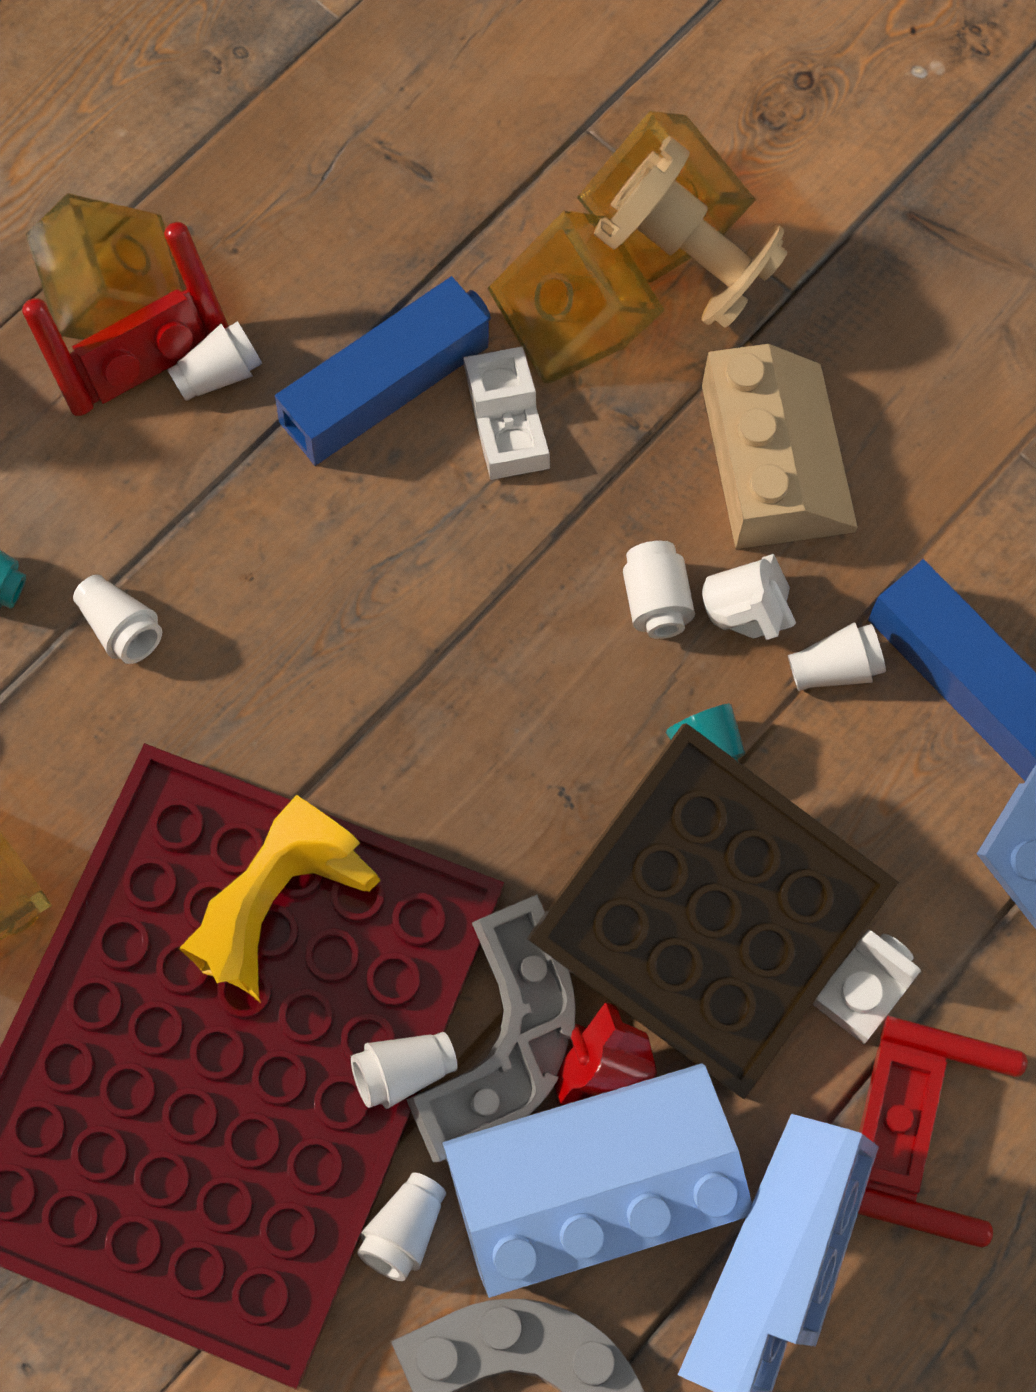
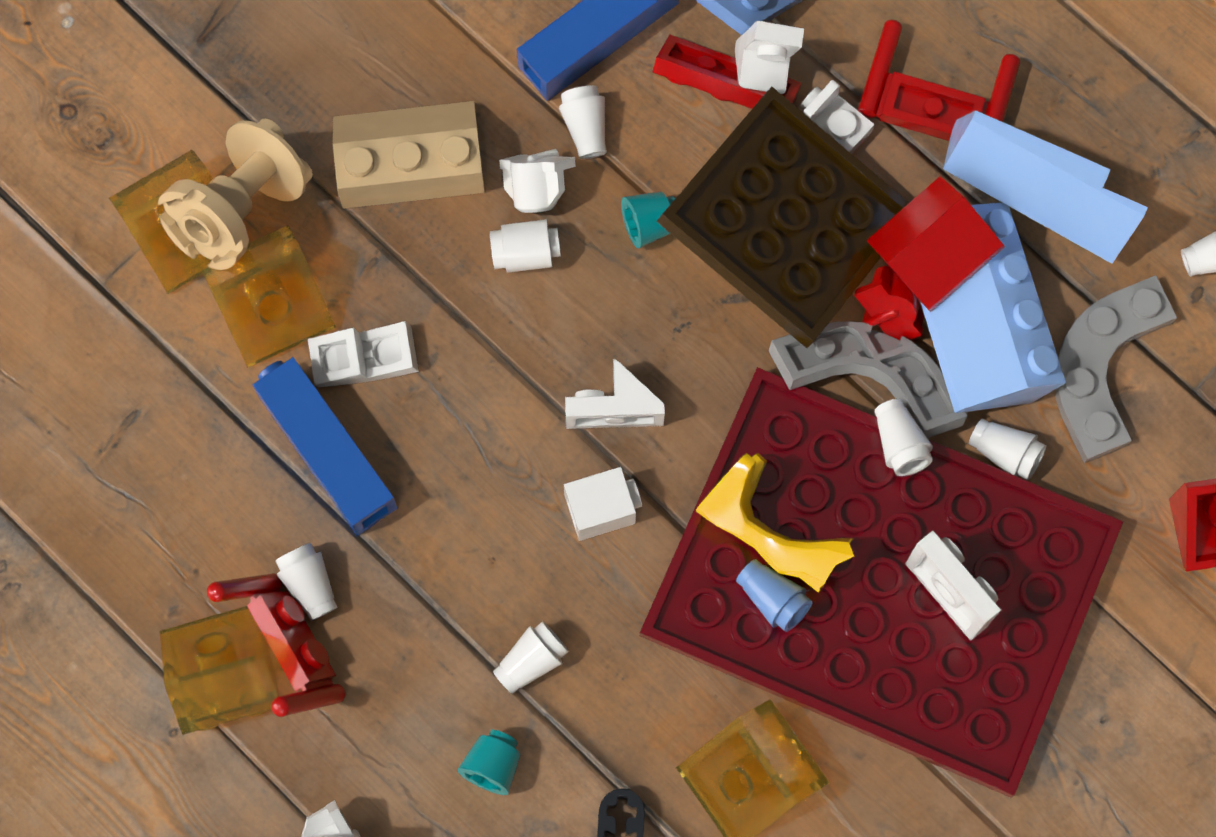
camera: 85 degrees left, 5 degrees up
(179, 903) = (774, 595): none -> medium blue cone
(201, 1109) = (965, 599): none -> white plate
(315, 693) = (602, 503): none -> white brick
(452, 719) = (629, 407): none -> white slope
(676, 1100) = (936, 243): none -> red slope
(920, 833) = (710, 72): none -> red plate
(938, 878) = (765, 55): none -> white slope

